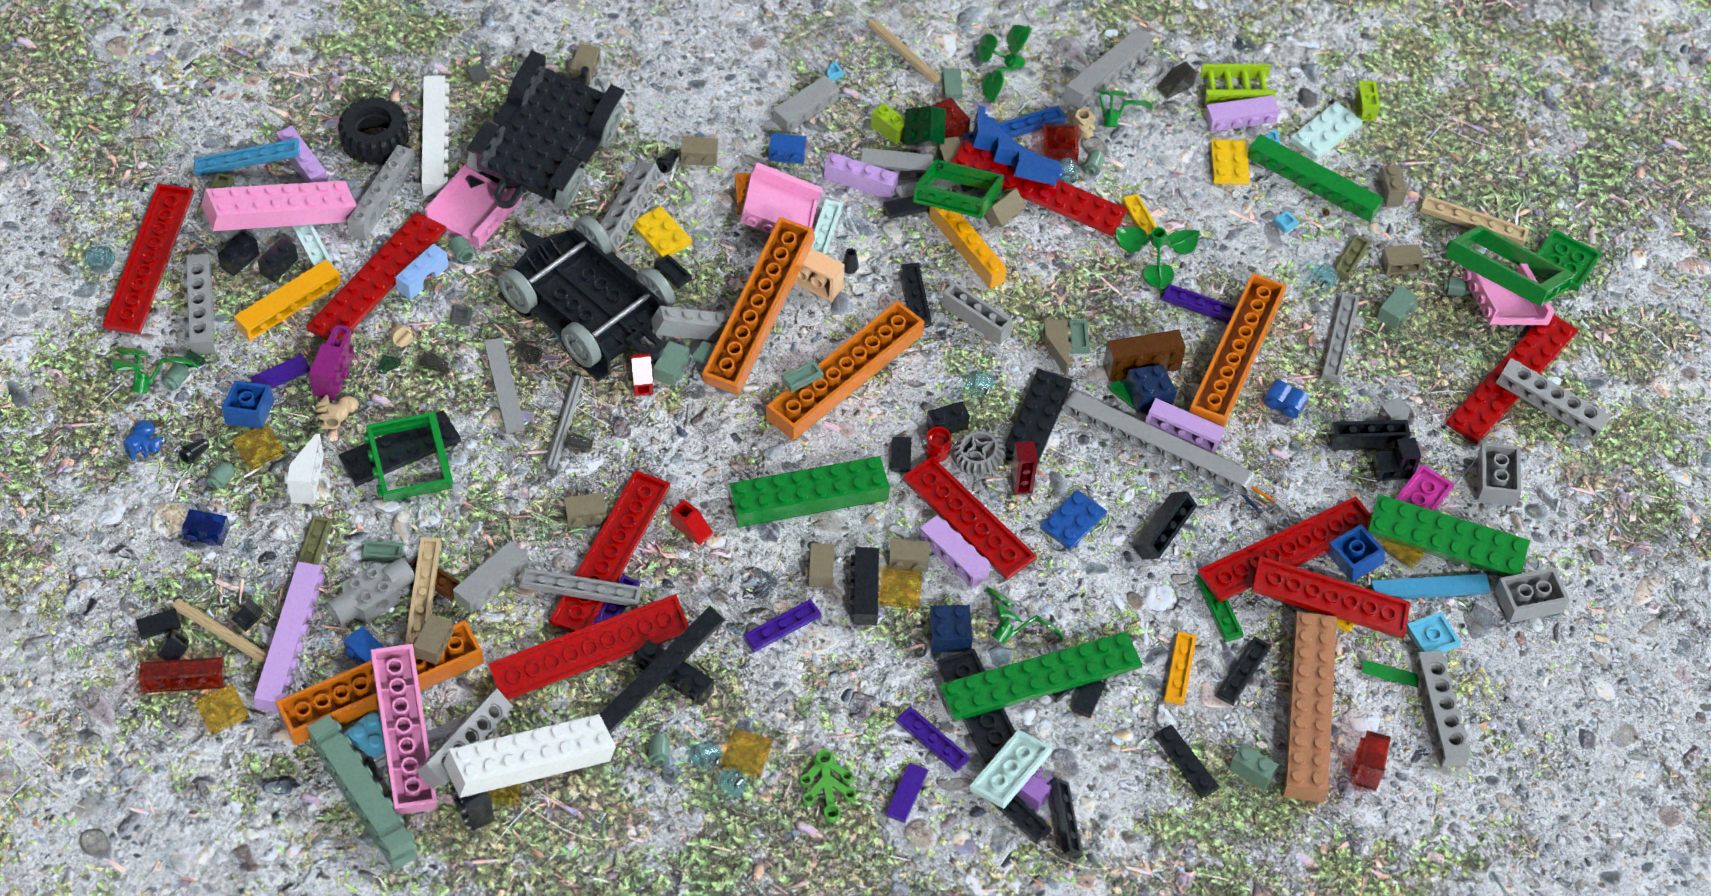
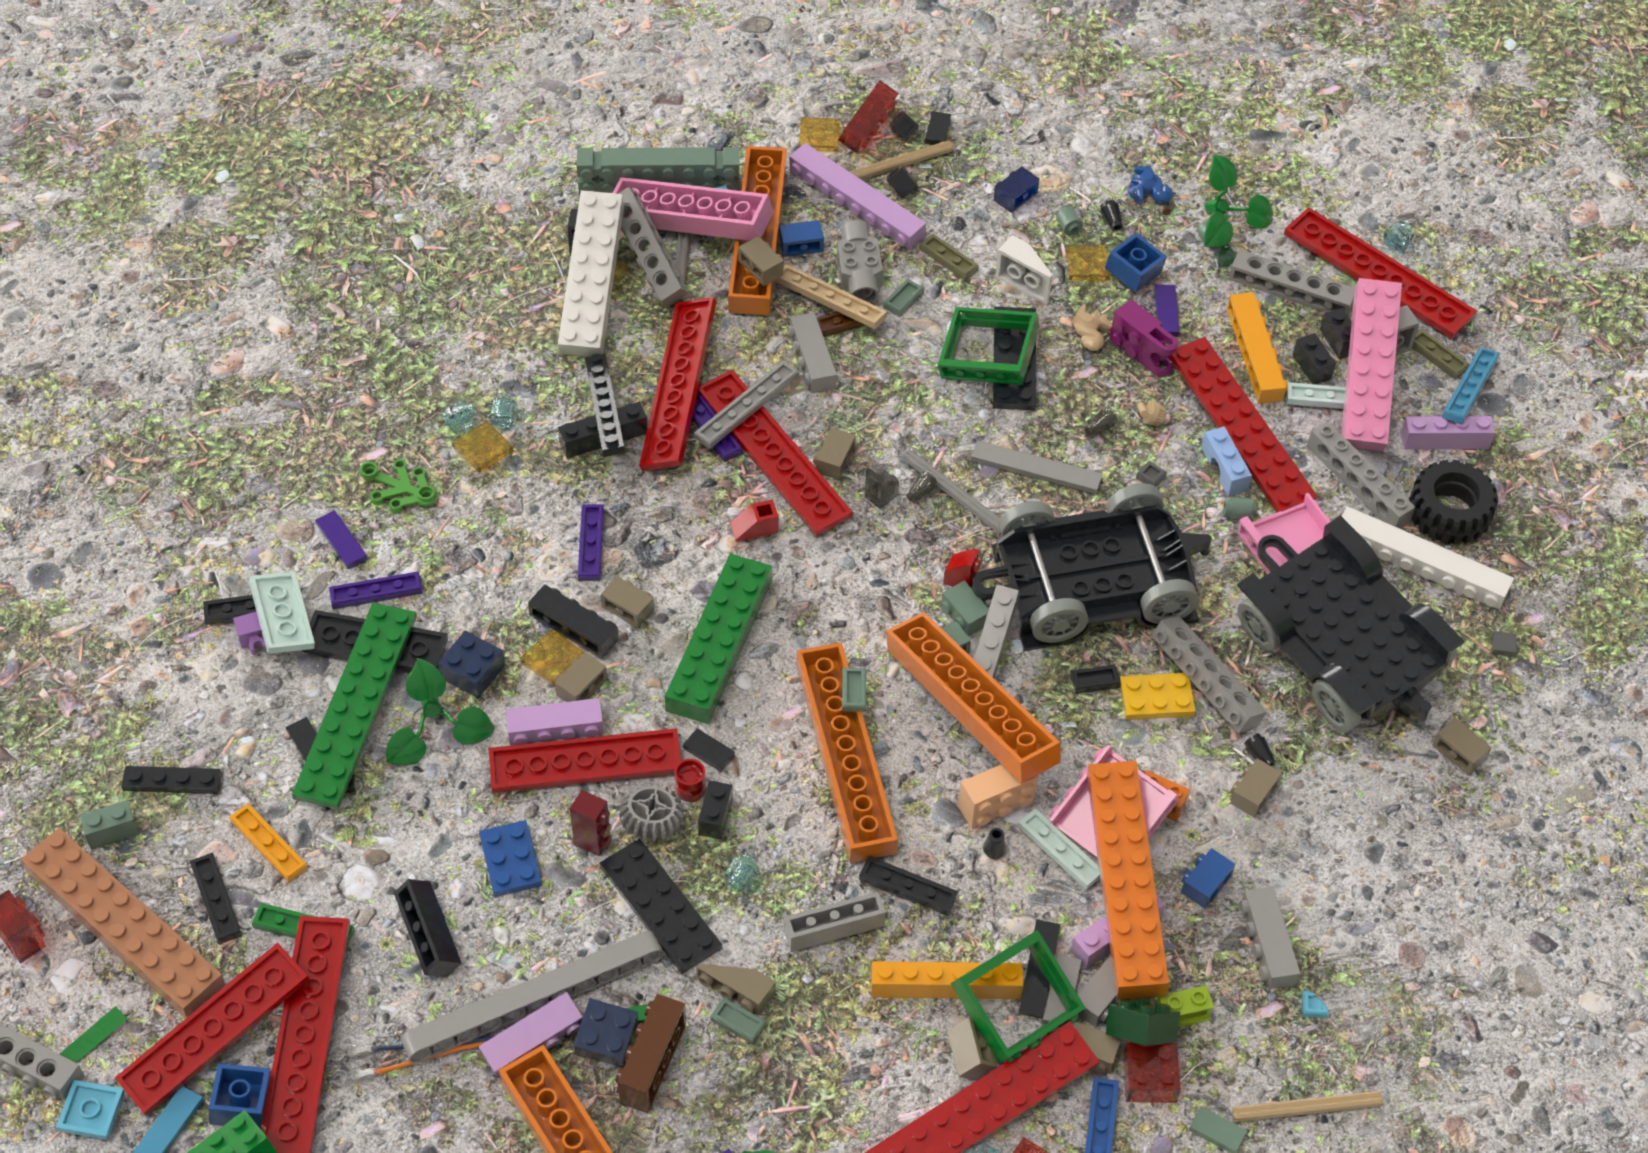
camera: 125 degrees right, 0 degrees up
(388, 363) = (1125, 391): clear green tile -> none
(528, 352) = (1063, 501): clear smoke cone -> none
(599, 461) = (880, 487): none -> clear smoke slope
(659, 749) = (536, 383): sand green brick -> none
(836, 165) = (1127, 881): none -> orange brick
(1026, 163) = (1080, 1083): blue arch -> none
(1066, 818) = (204, 639): black plate -> none

